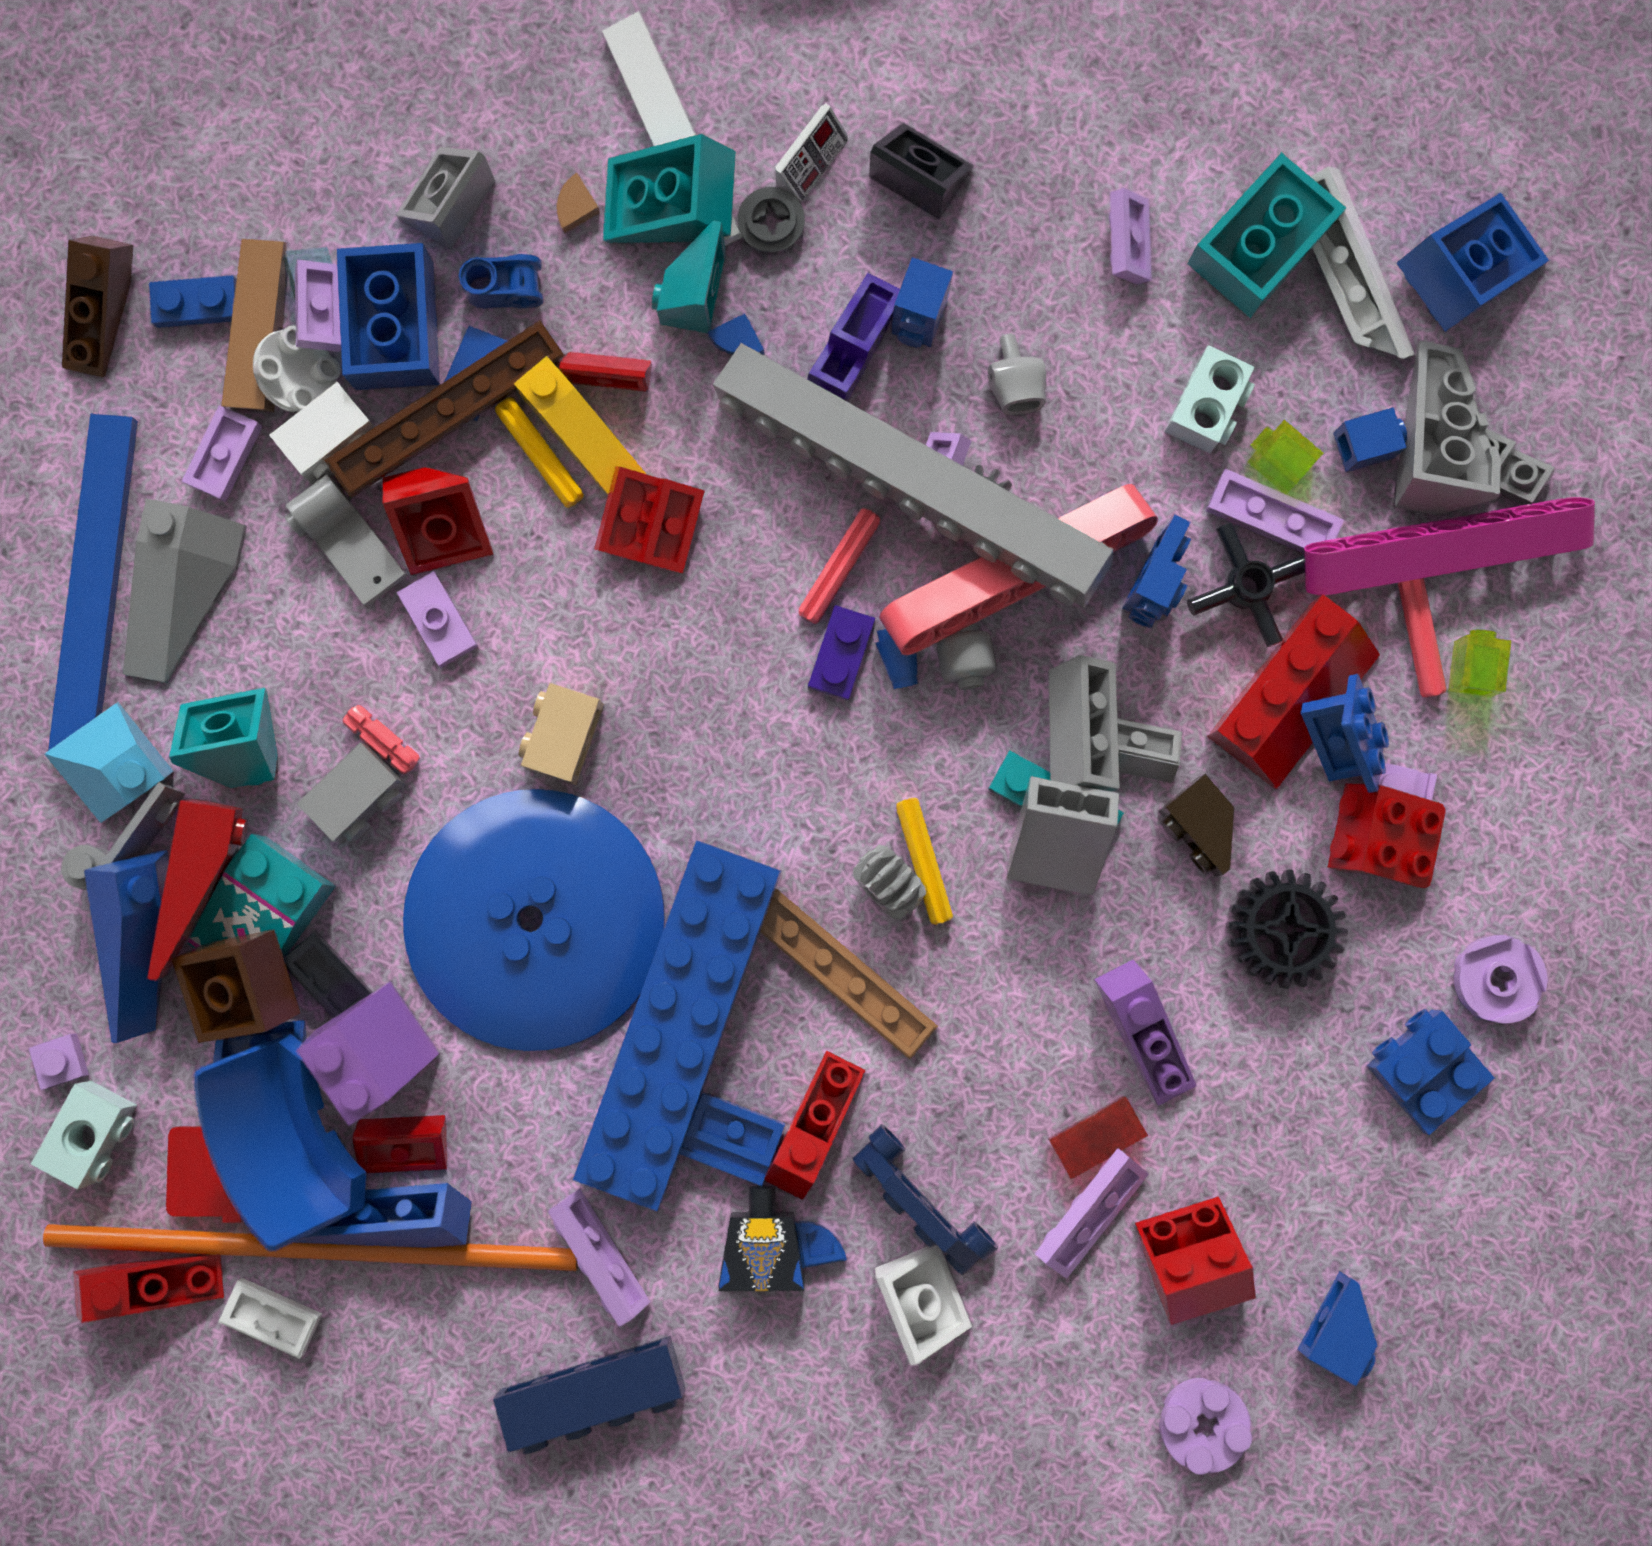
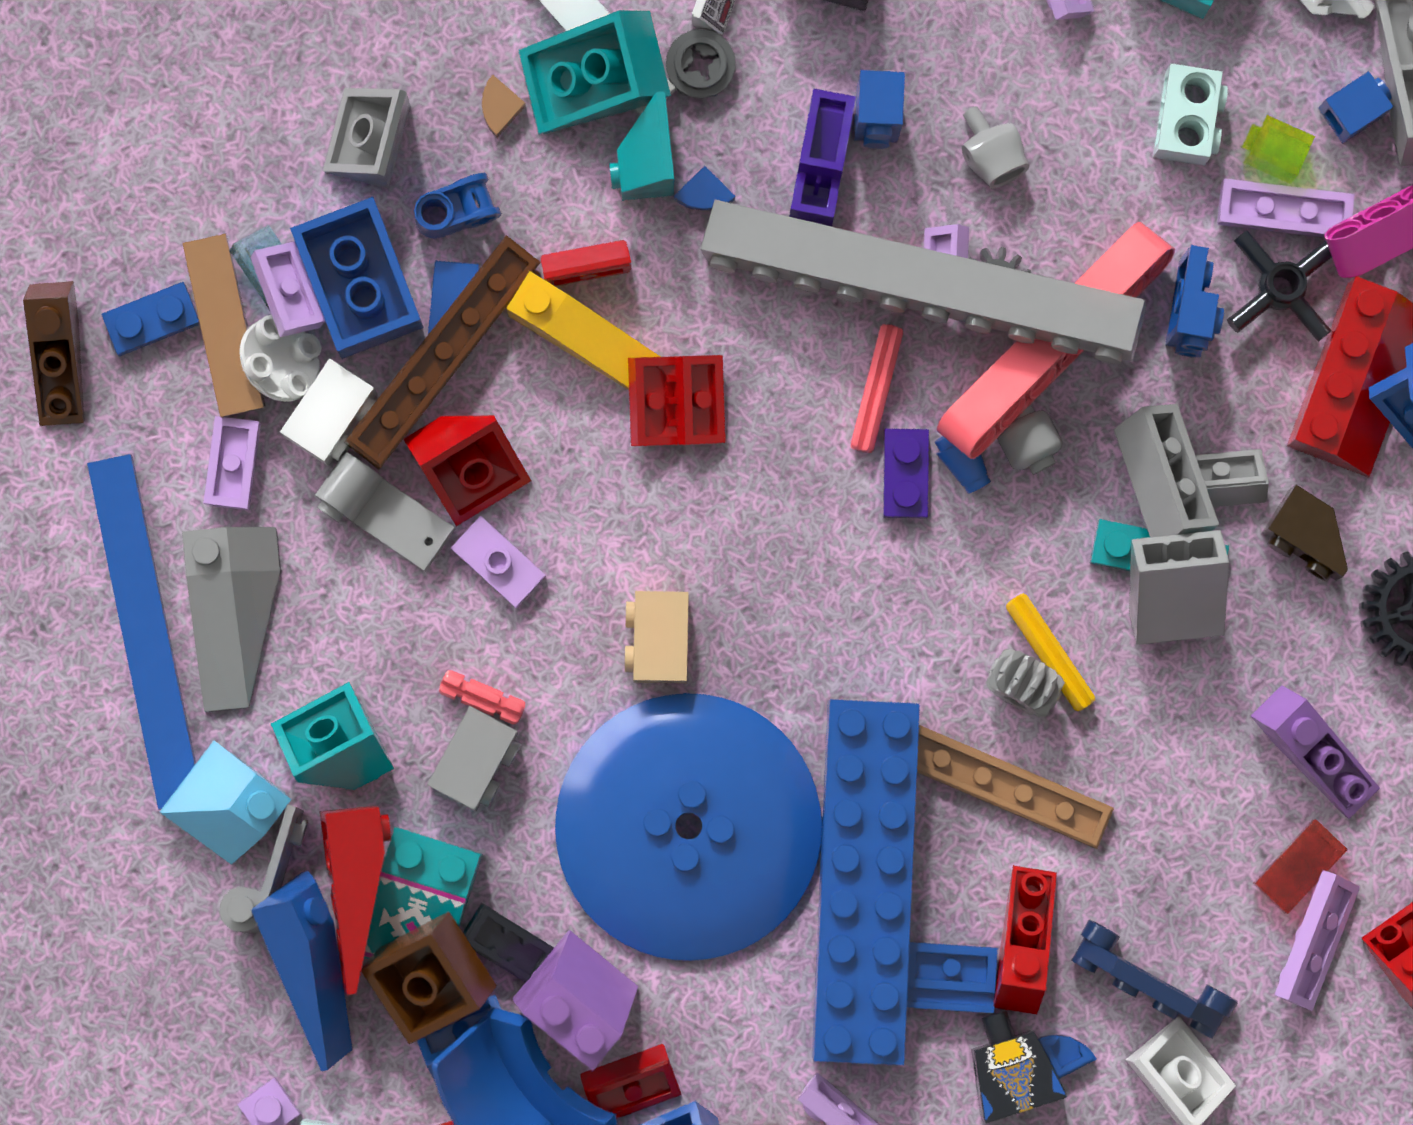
camera: 25 degrees left, 0 degrees up
(539, 452) = (545, 366): yellow axle -> none

